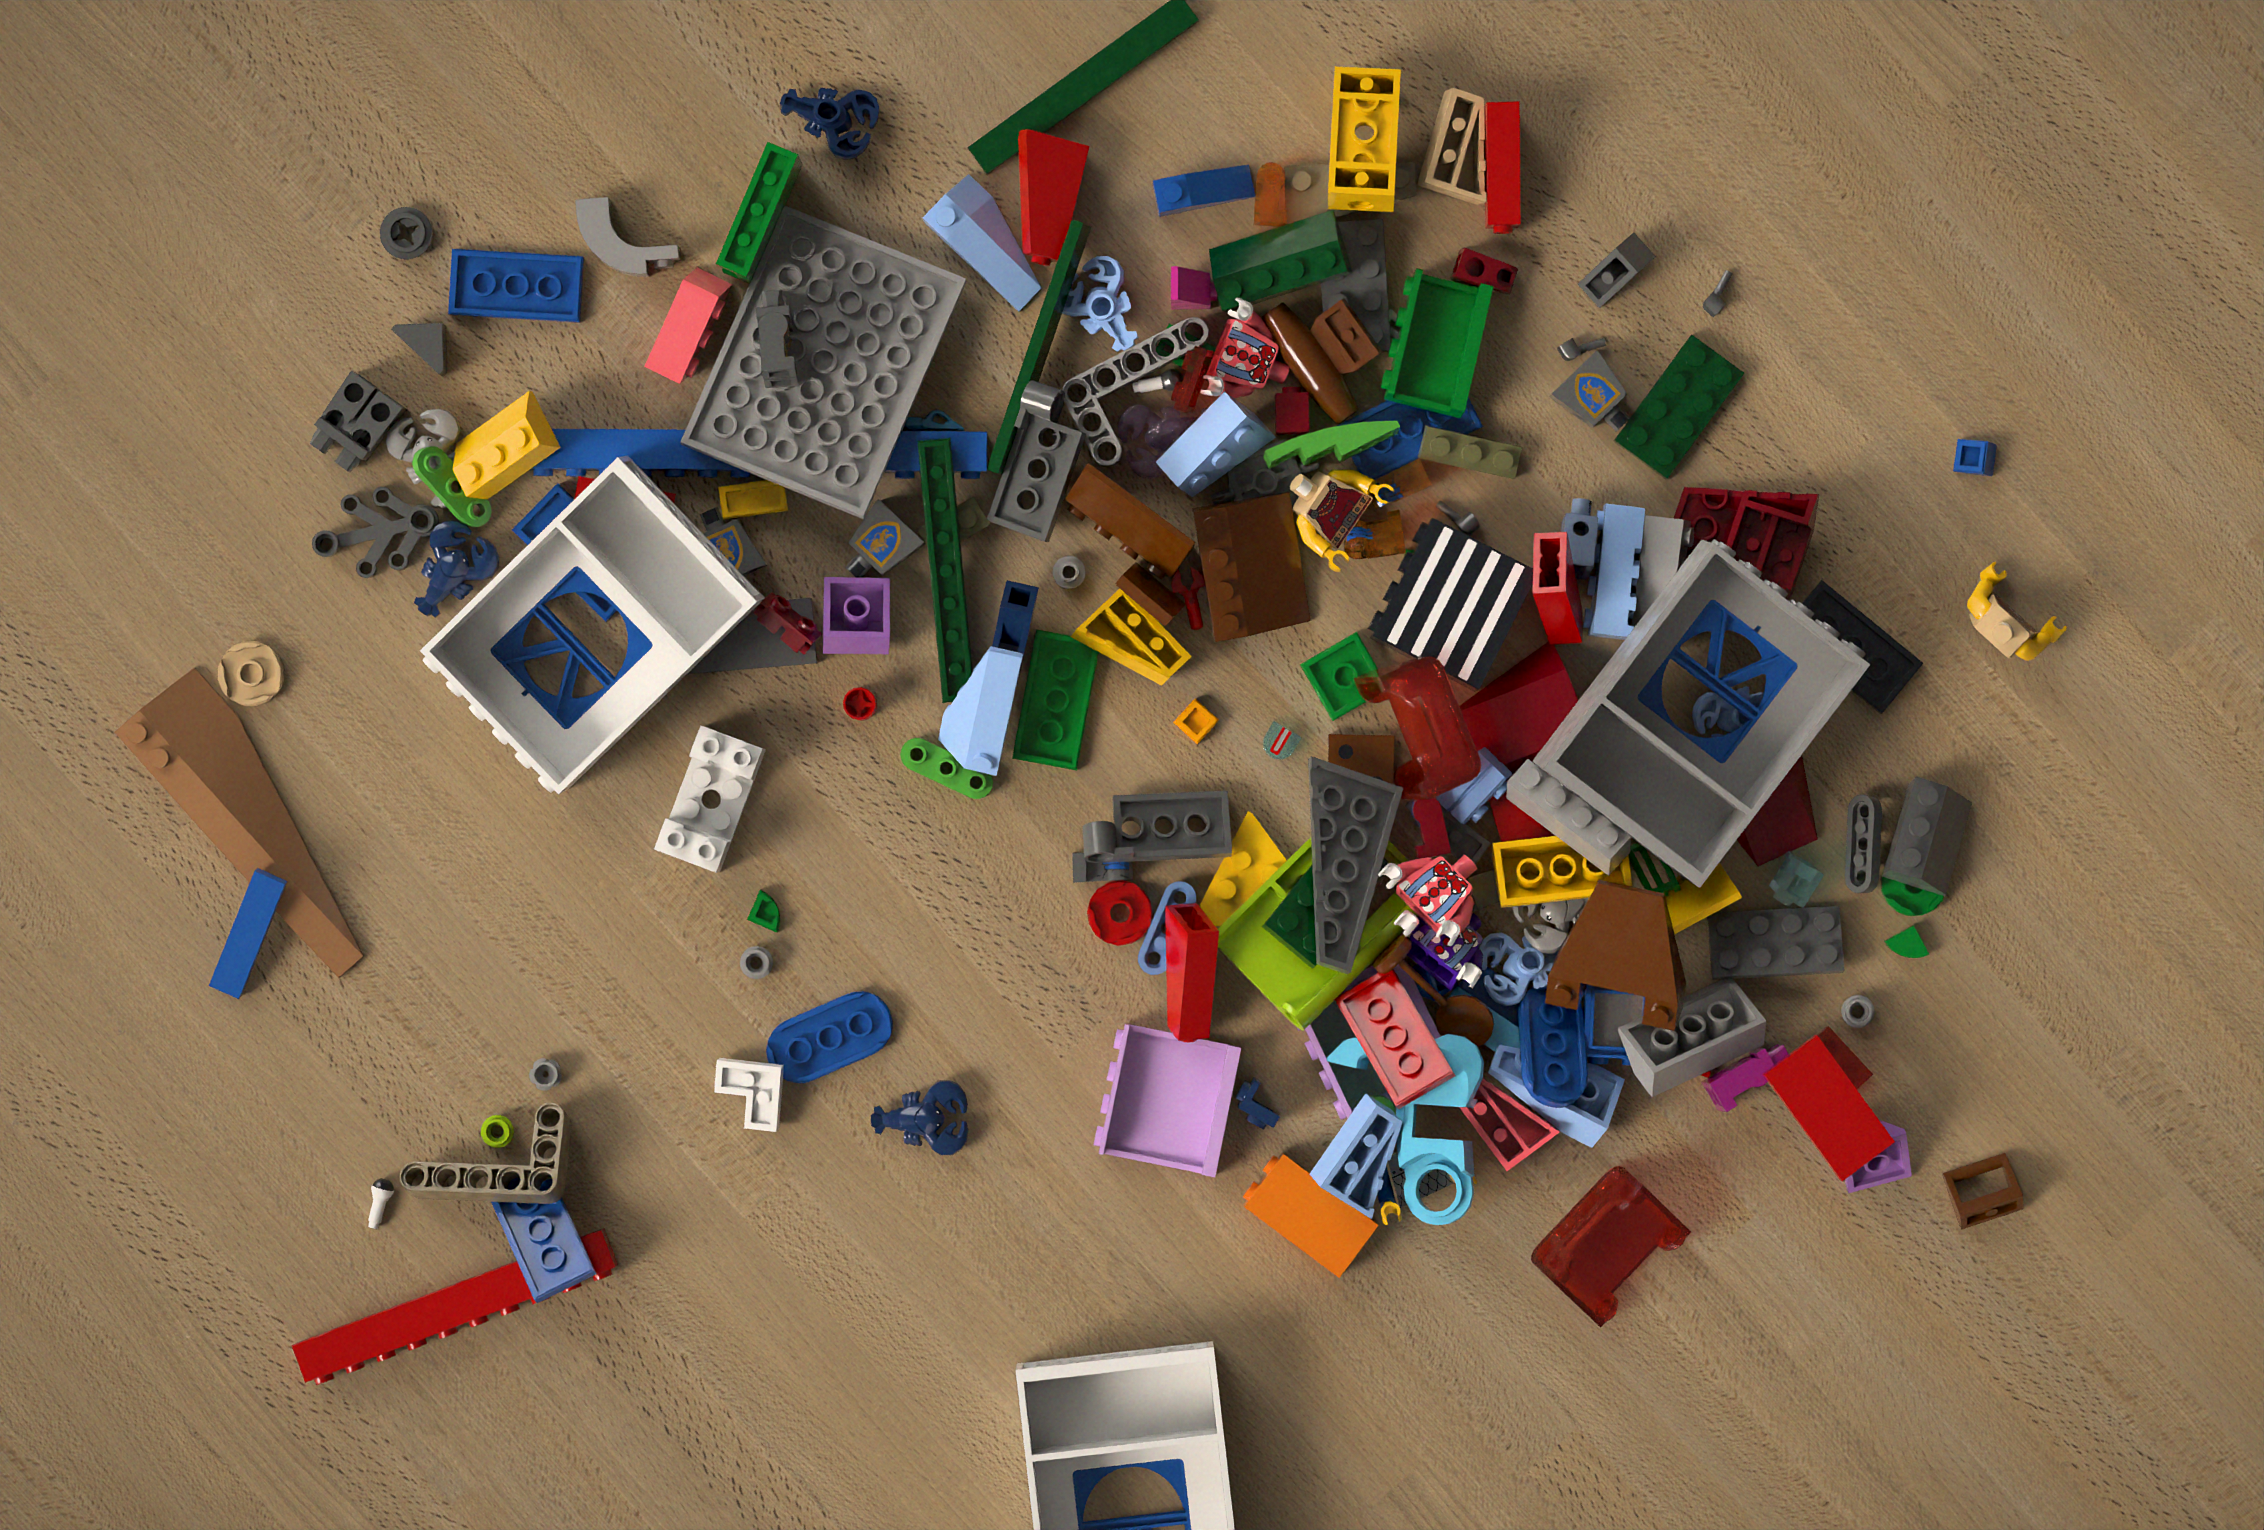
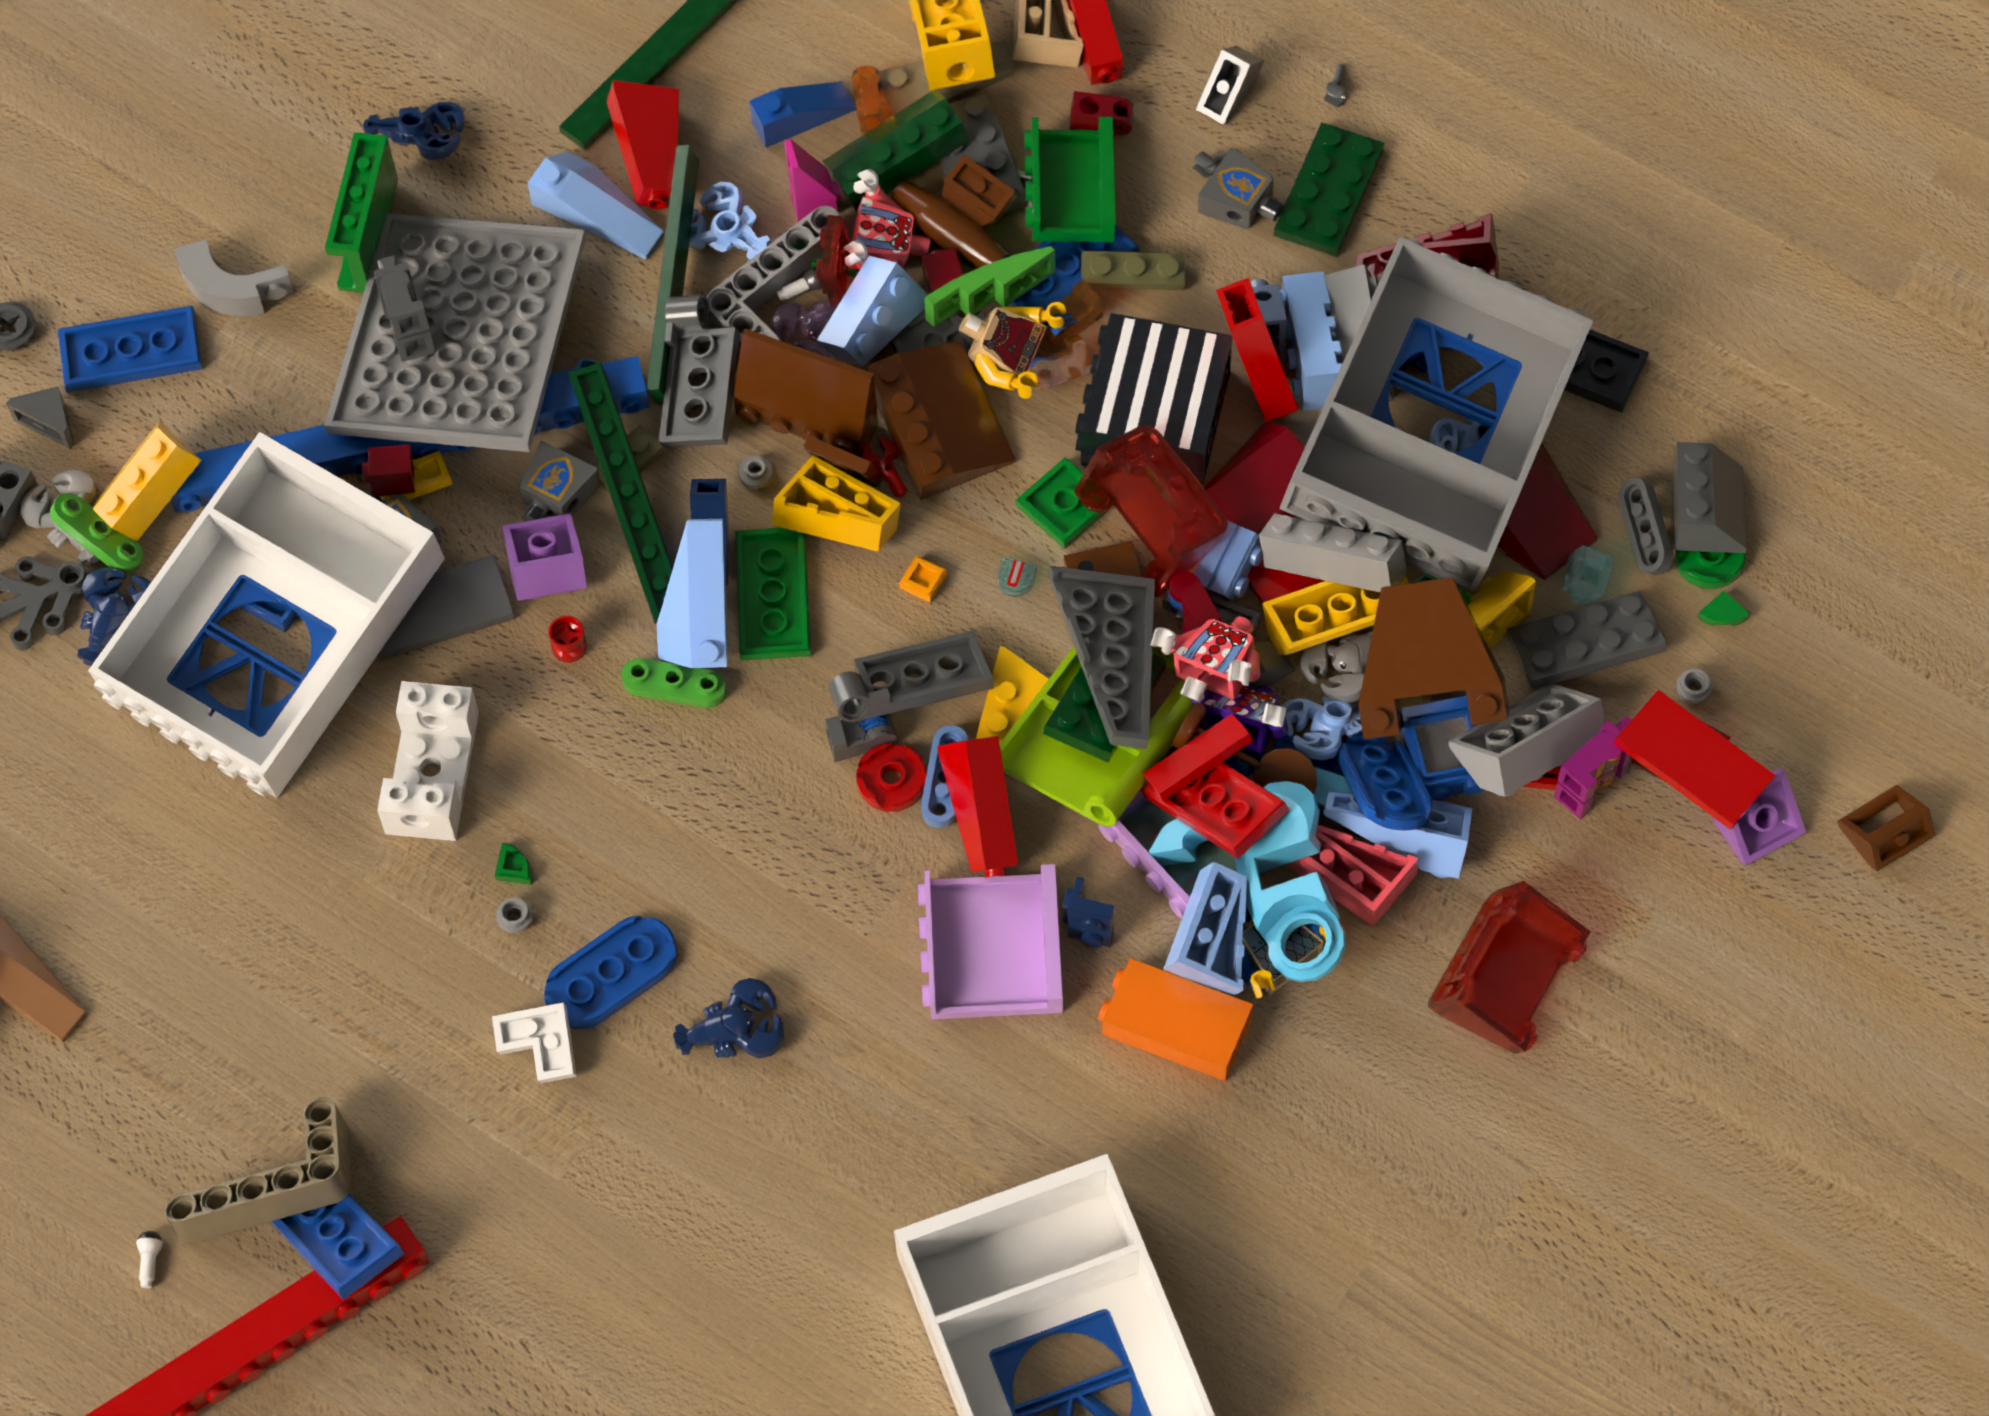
camera: 10 degrees left, 25 degrees down
(489, 1138) = (264, 1142): lime plate -> none
(536, 1074) = (304, 1072): light grey plate -> none
(688, 325) = (311, 335): coral wedge -> none
(732, 497) = (390, 470): none -> dark red brick
(777, 612) = (460, 572): dark red hinge -> none
(1391, 991) = (1197, 757): none -> red tile
(1975, 457) = (1636, 165): blue slope -> none
(2005, 626) = (1720, 292): torso -> none

